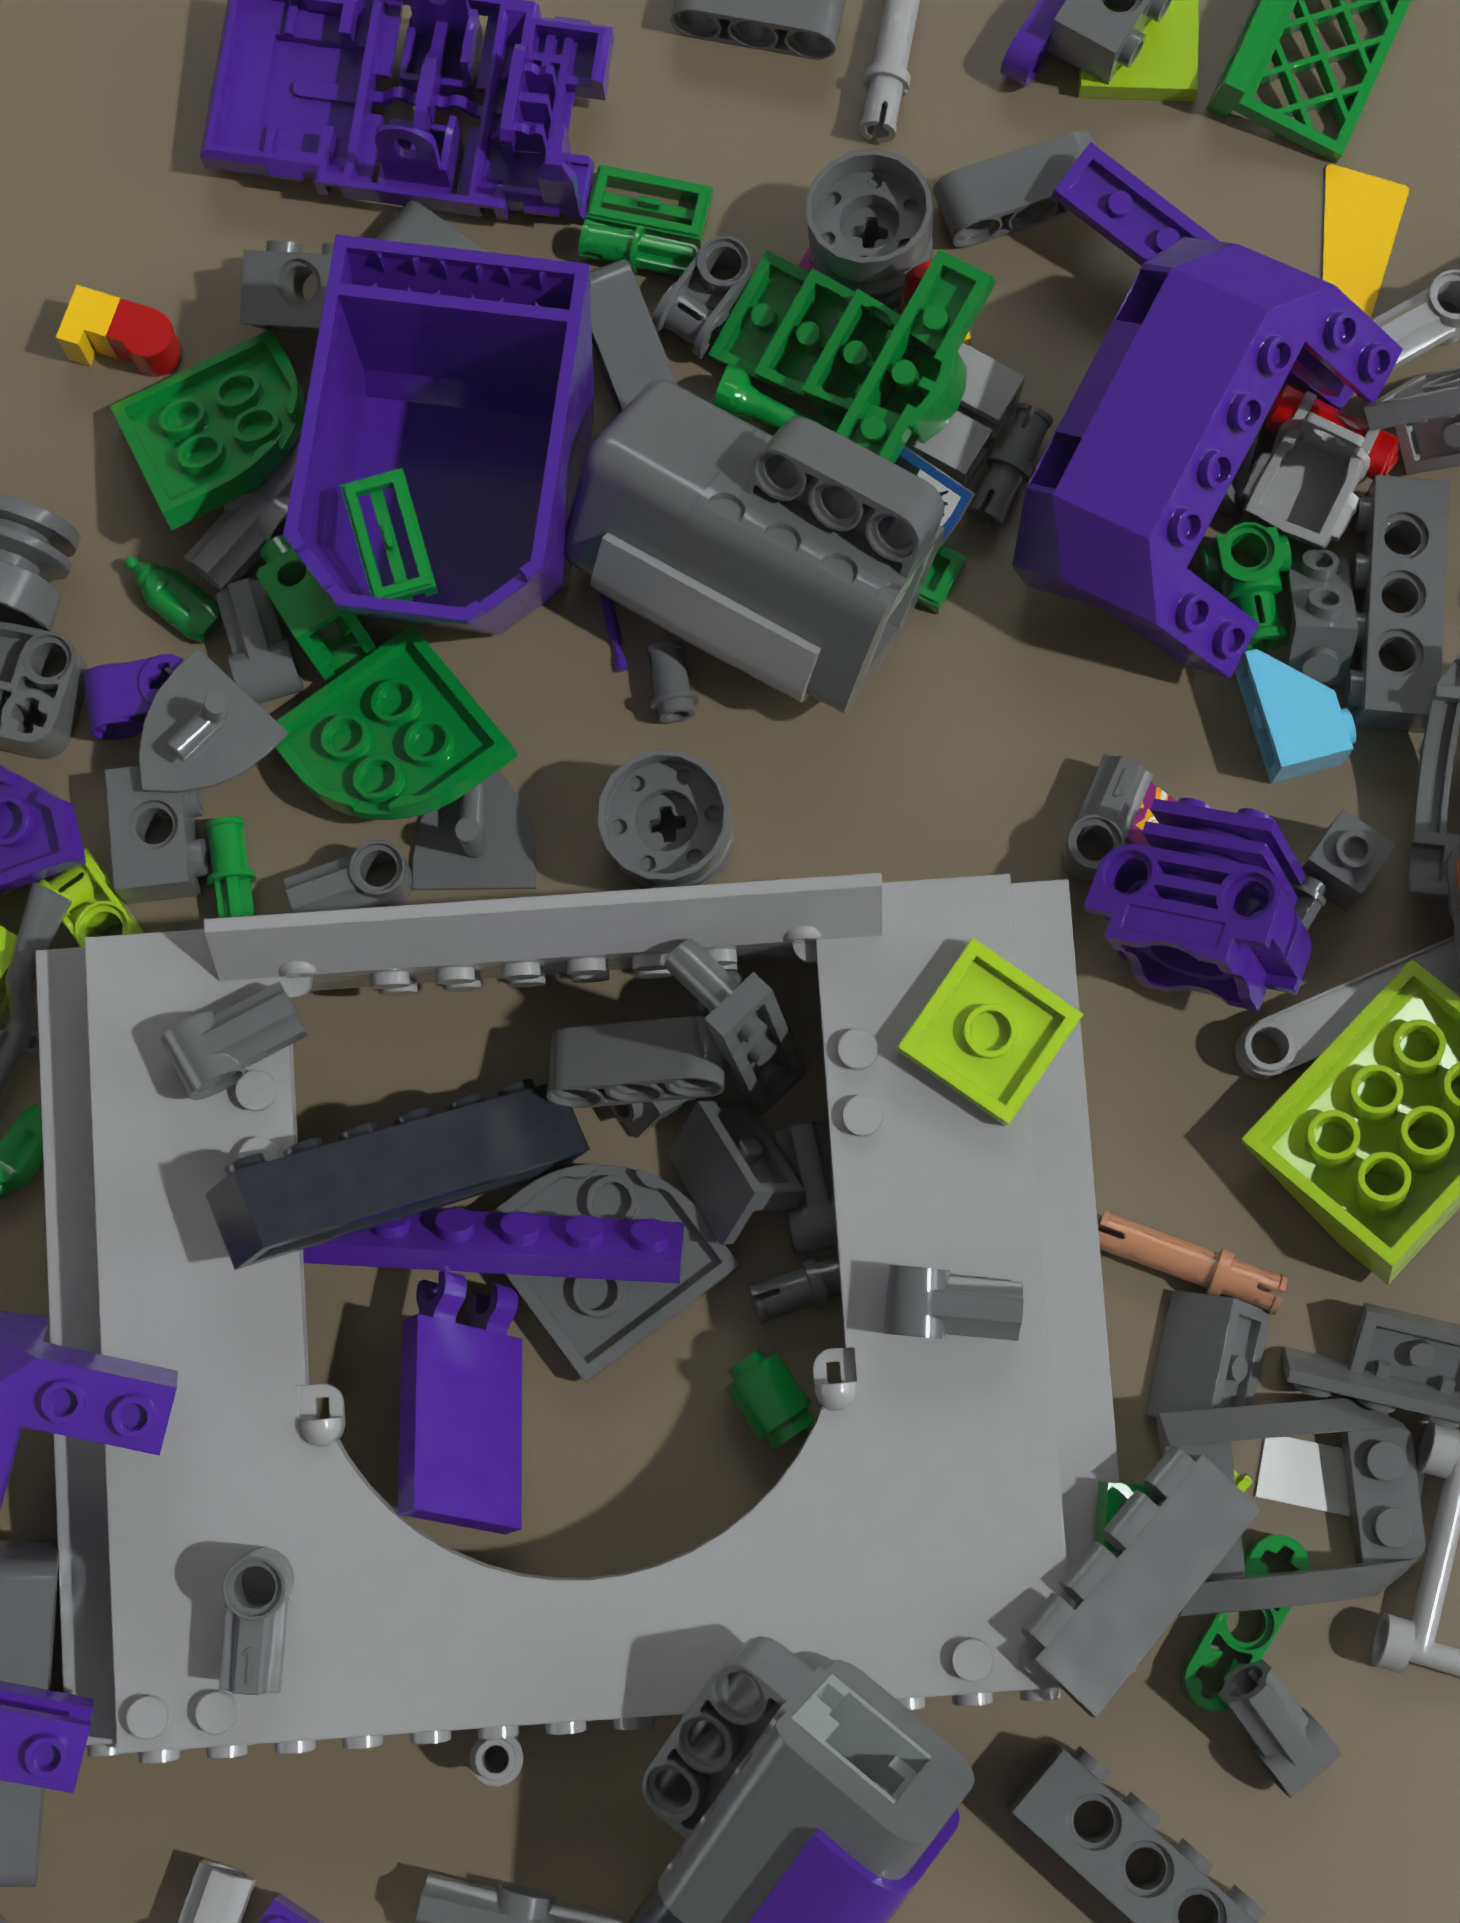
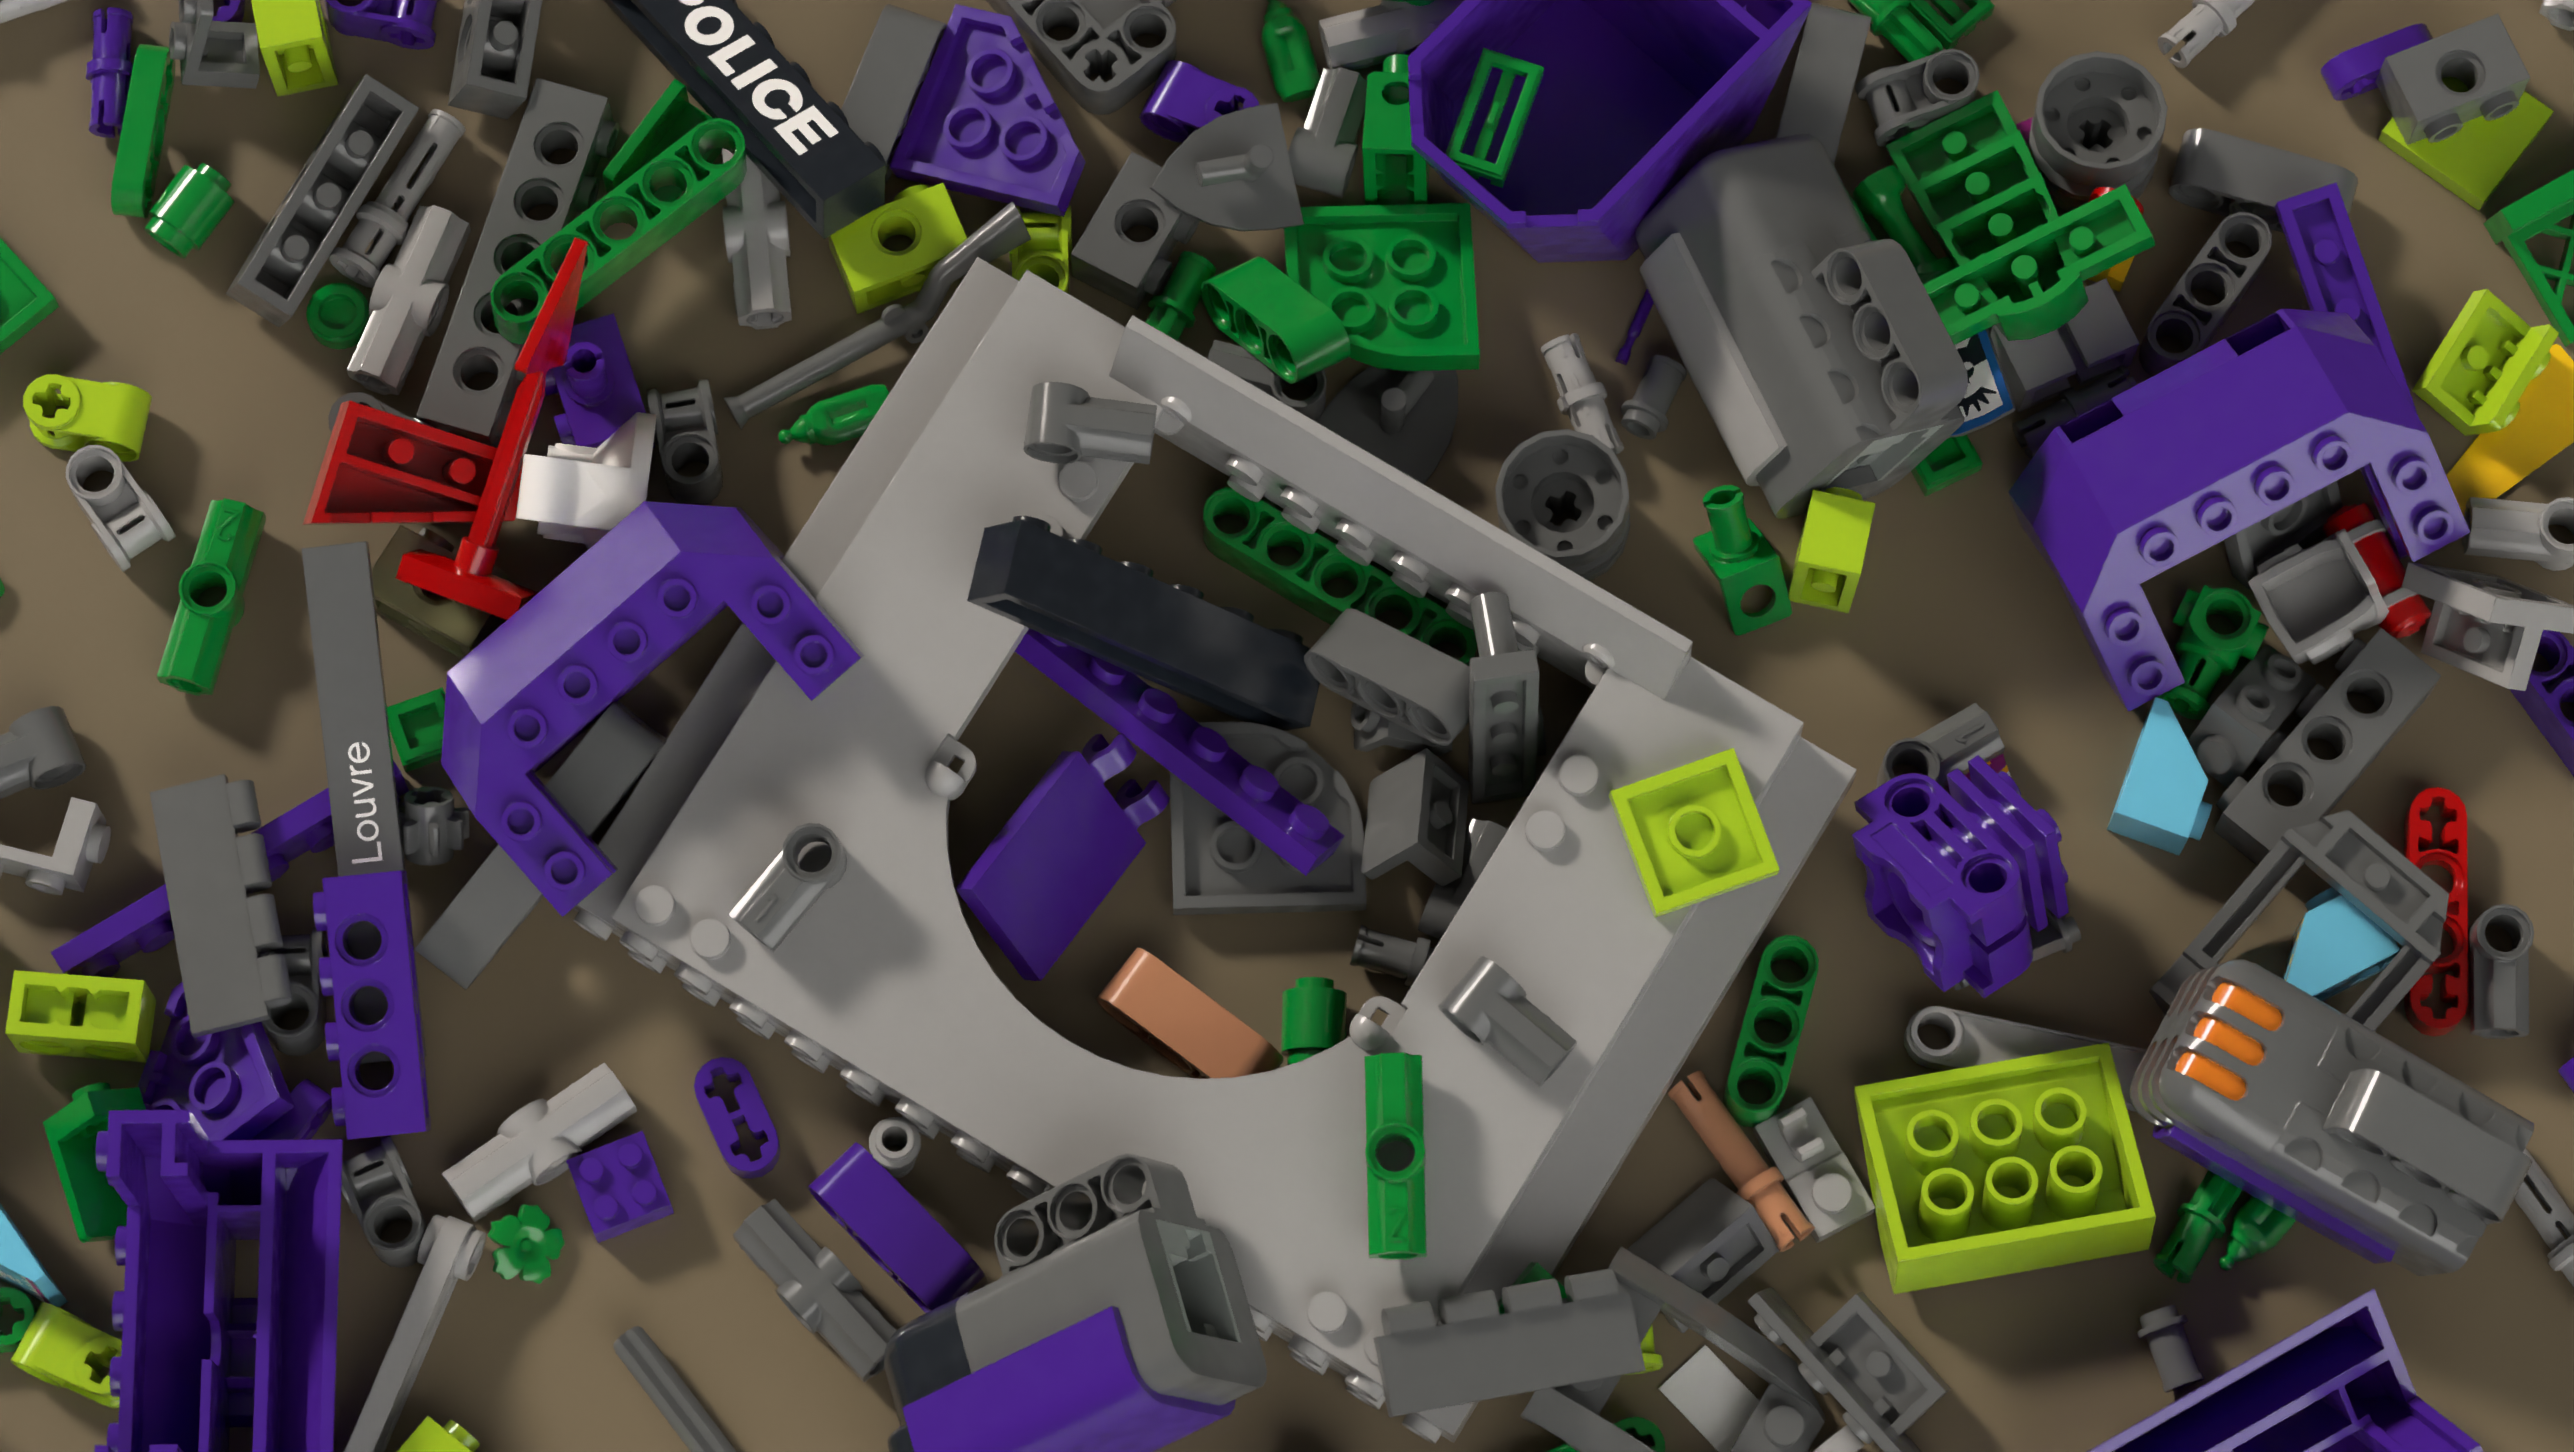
camera: 30 degrees right, 5 degrees down
(323, 829) = (1275, 319): none -> green beam
(336, 1836) = (723, 1124): none -> dark purple beam
(499, 1005) = (1320, 563): none -> green beam
(549, 1828) = (895, 1230): none -> dark purple beam
(610, 718) = (1579, 391): none -> light grey pin
(669, 1473) = (1184, 1022): none -> nougat beam
(836, 766) = (1740, 560): none -> green bracket
(906, 708) = (1831, 549): none -> lime brick
(968, 1525) = (1395, 1198): none -> green piece
(1049, 281) = (2212, 270): none -> dark grey beam
(1142, 1107) = (1775, 1001): none -> green beam
(1249, 1225) = (1814, 1169): none -> light grey plate
(1297, 210) = (2484, 365): none -> lime bracket
(1347, 858) = (2116, 928): dark grey brick -> none

